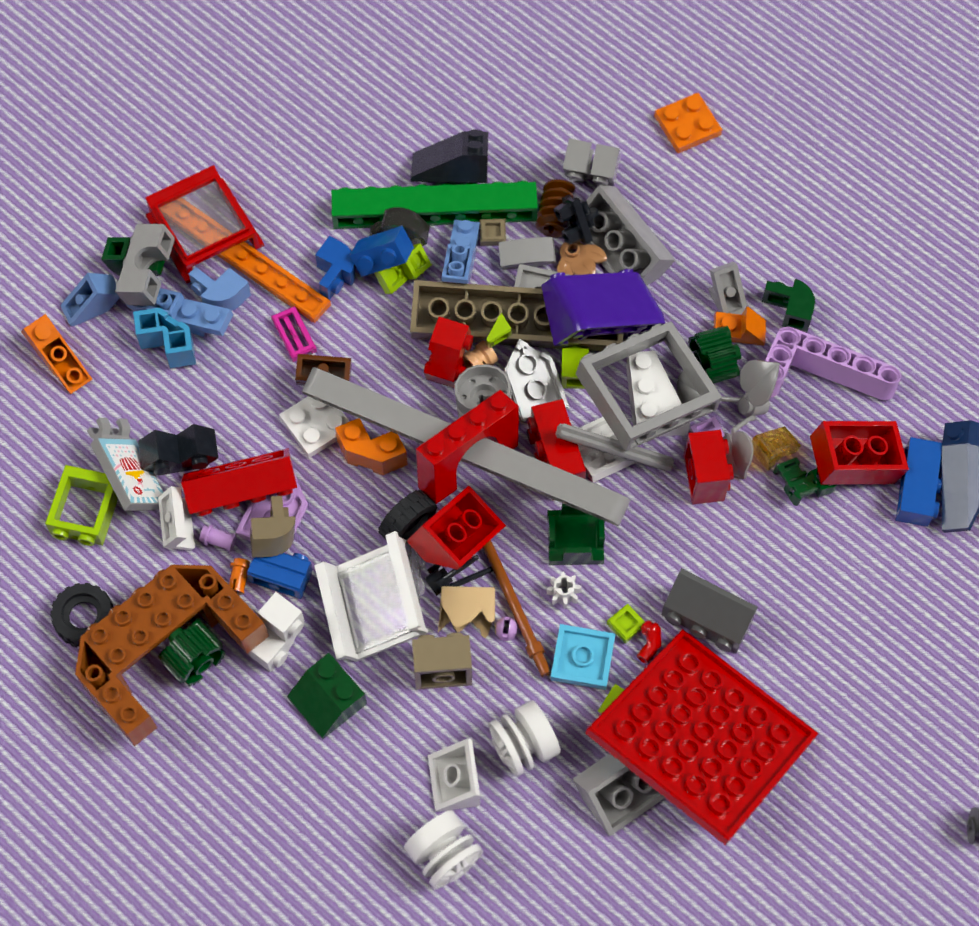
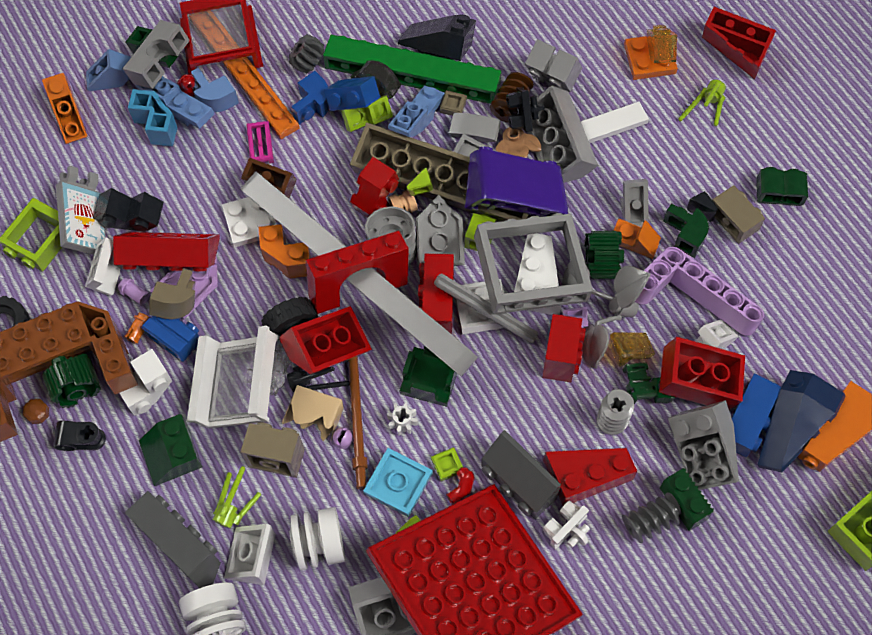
camera: 20 degrees right, 0 degrees up
(160, 698) = (36, 411): none -> dark orange tile
(187, 288) = (187, 84): none -> red arm
(217, 711) = (75, 435): none -> black piece
(311, 218) = (306, 53): none -> dark grey gear
(372, 785) = (176, 541): none -> dark grey wedge
(414, 744) = (225, 513): none -> lime plant
(675, 206) = (614, 122): none -> white tile
(699, 107) = (662, 44): none -> clear yellow slope
(766, 659) = (575, 517): none -> white hips
(769, 148) = (712, 94): none -> lime plant
(777, 586) = (589, 471): none -> red wedge
(778, 80) = (738, 39): none -> red wedge
(784, 517) = (615, 412): none -> light grey piece
(799, 271) = (703, 203): none -> black slope
(836, 273) = (737, 214): none -> dark tan brick
(855, 614) = (652, 516): none -> dark grey piece
(858, 408) = (716, 334): none -> white slope
(873, 231) = (782, 186): none -> dark green brick
(883, 586) = (691, 502): none -> dark green brick
(886, 525) = (707, 444): none -> light grey slope

